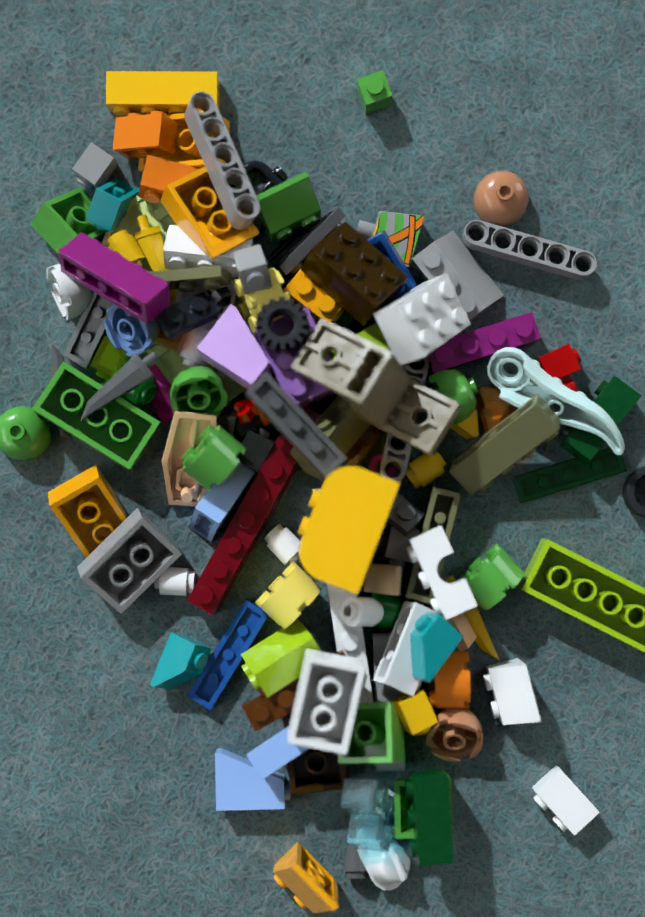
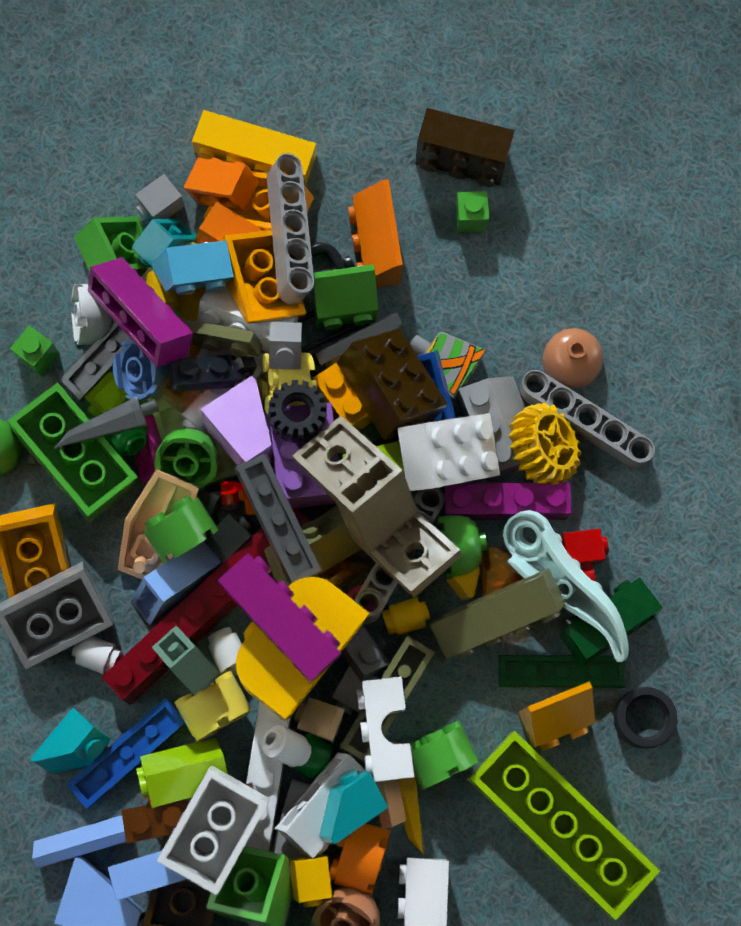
camera: 10 degrees right, 10 degrees down
(31, 336) = (34, 350): none -> bright green brick
(149, 222) = (194, 267): none -> medium azure slope
(213, 738) = (78, 842): none -> light blue tile
(254, 568) = (185, 660): none -> sand green brick
(297, 138) = (377, 233): none -> orange slope
(326, 512) = (279, 617): none -> magenta brick
(350, 35) = (463, 147): none -> dark brown brick
(500, 284) = (544, 444): none -> yellow gear
(579, 513) = (558, 716): none -> light orange slope

